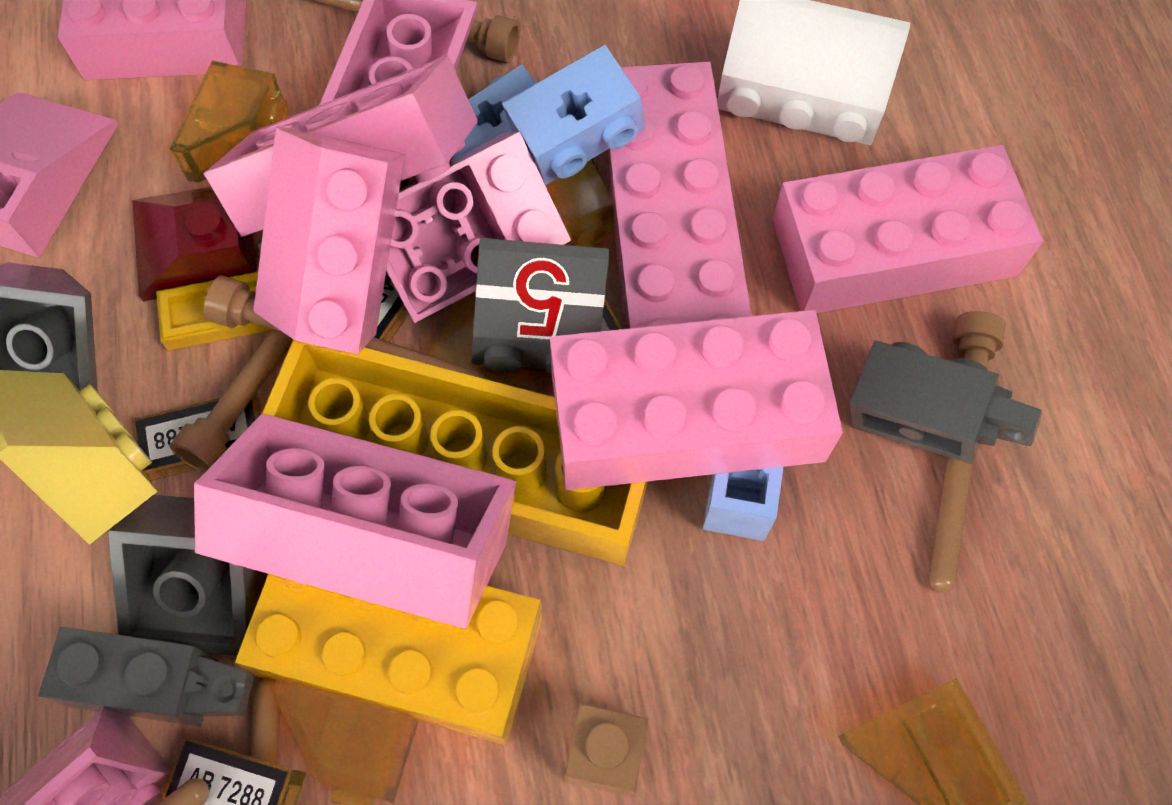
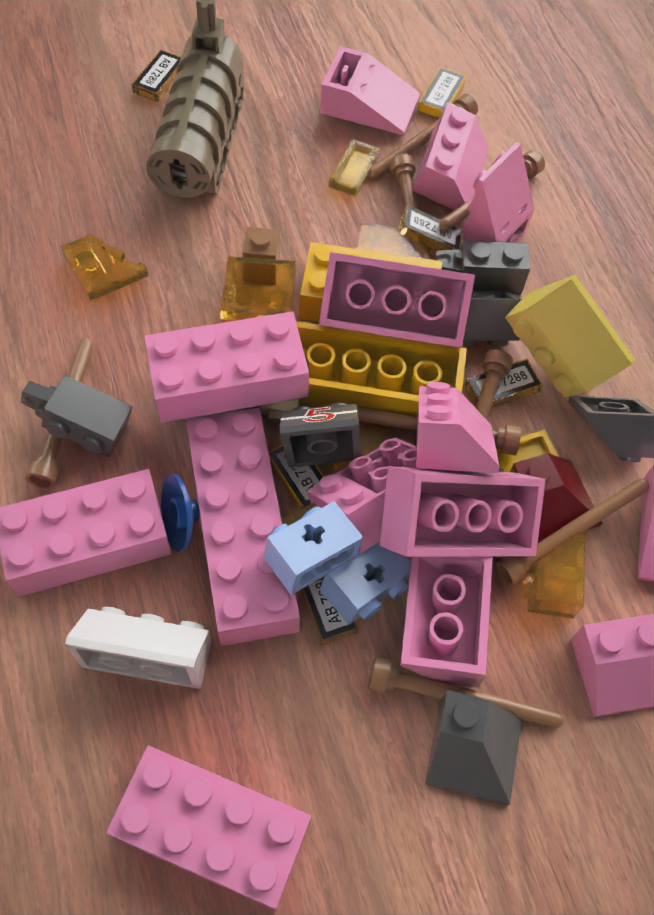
camera: 170 degrees right, 5 degrees down
(127, 195) = (514, 568): none -> medium nougat piece
(619, 620) = (257, 288): none -> clear yellow piece
(759, 234) = (178, 512): none -> blue dish

